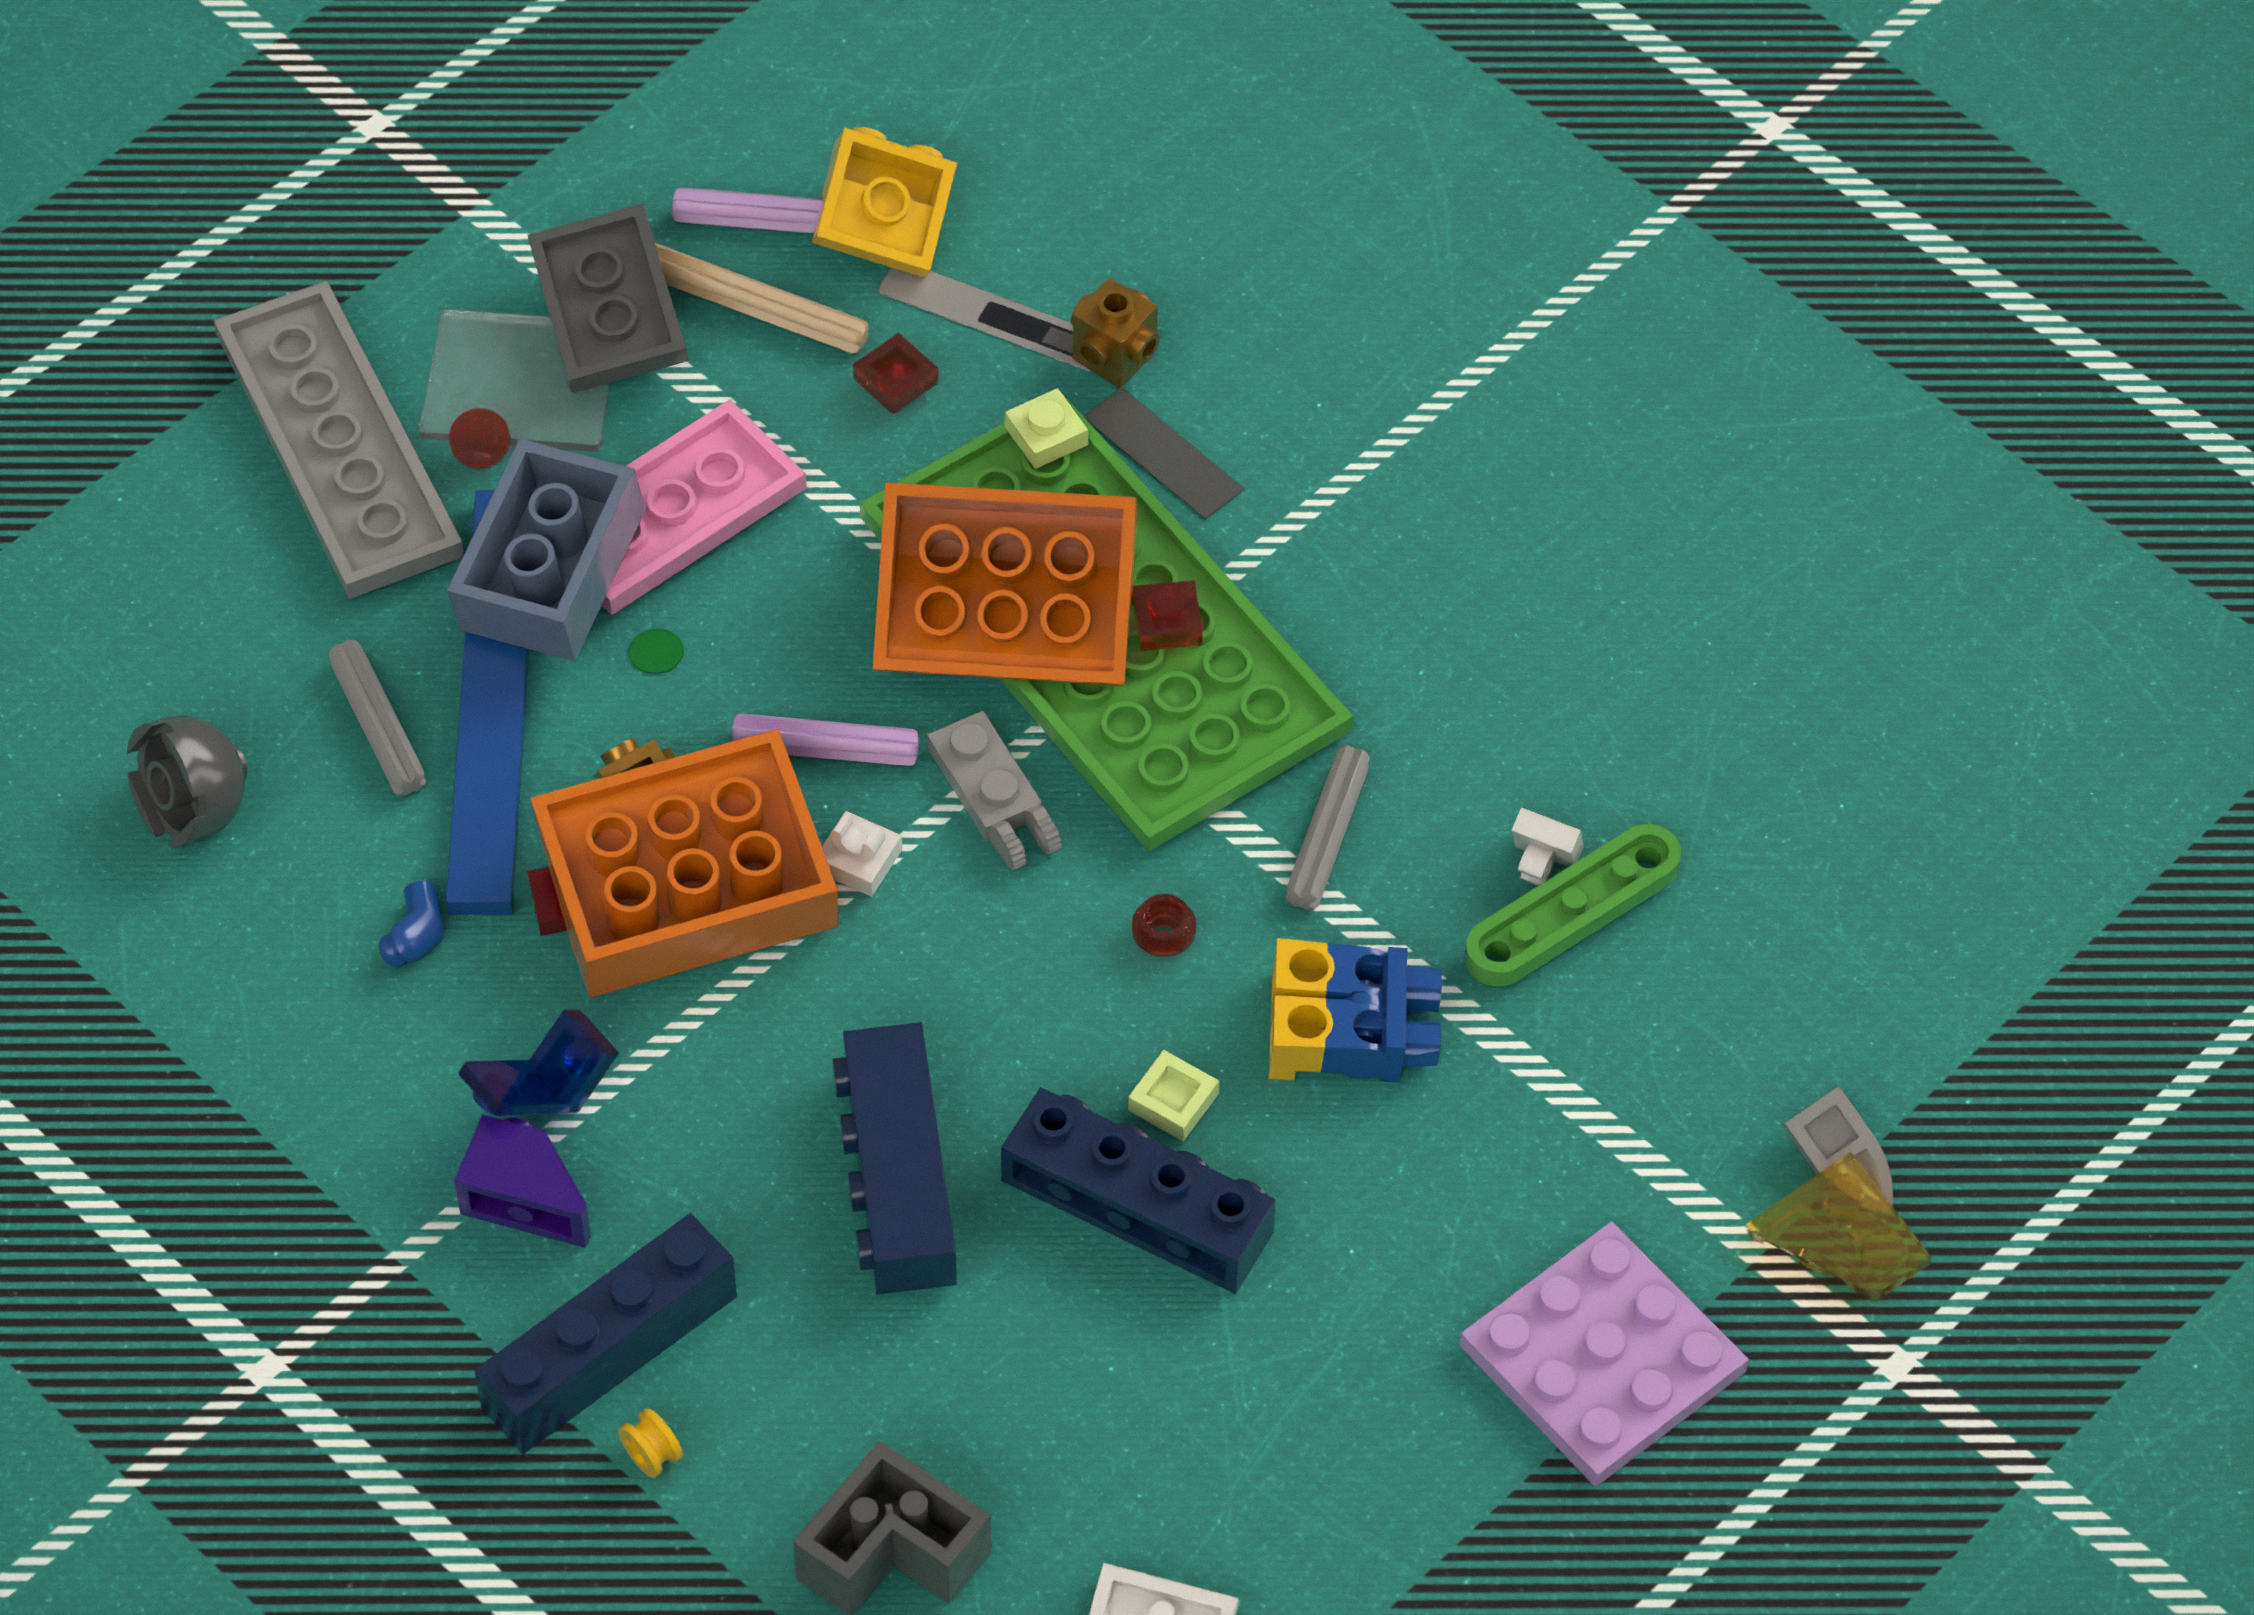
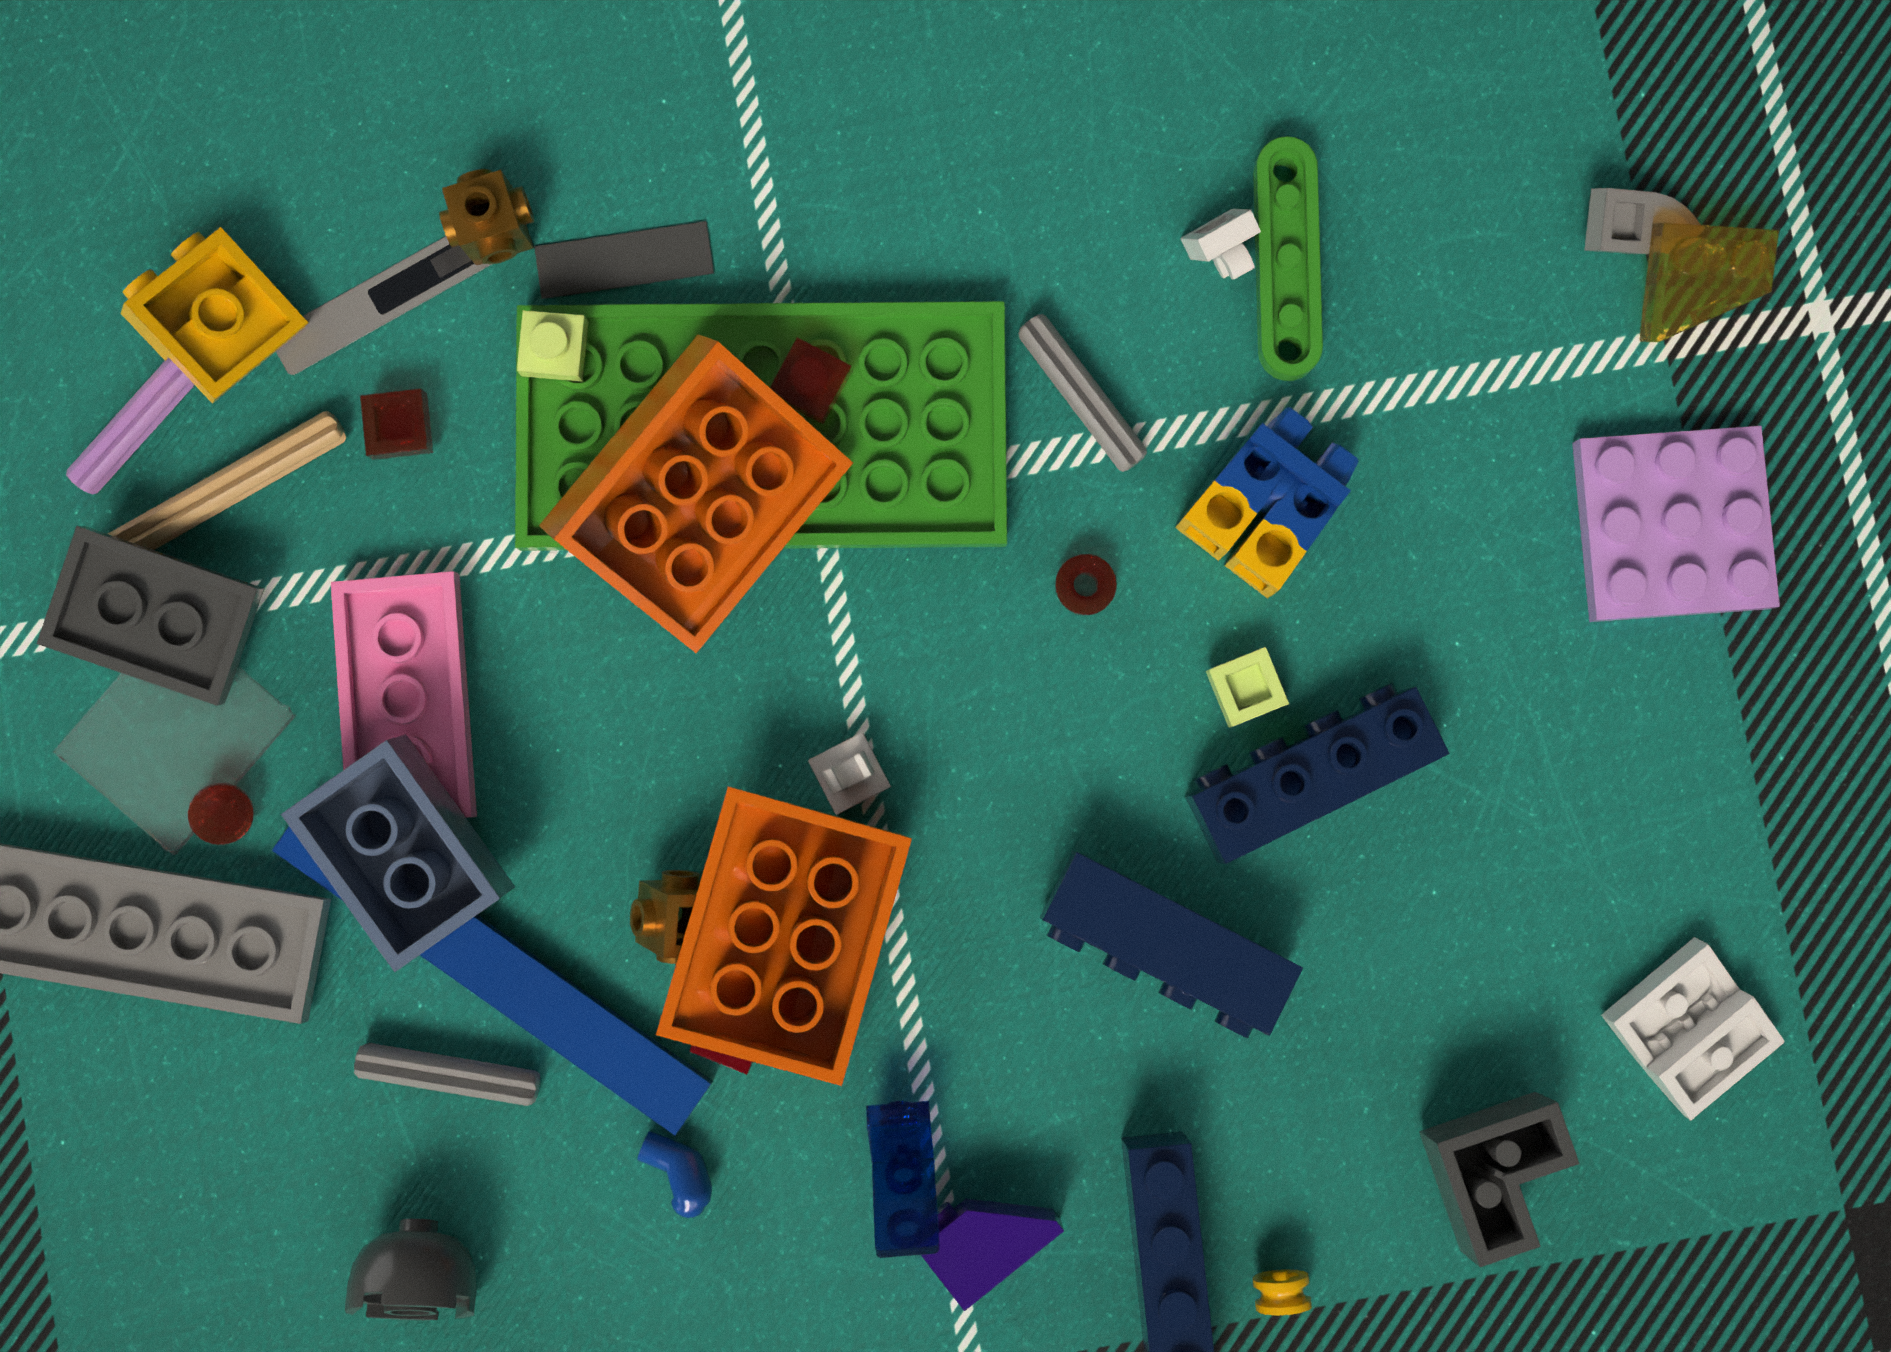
camera: 55 degrees left, 30 degrees up
(656, 651) = (534, 800): green sticker -> none
(834, 739) = (723, 728): lavender axle -> none
(992, 787) = (859, 626): light grey hinge -> none

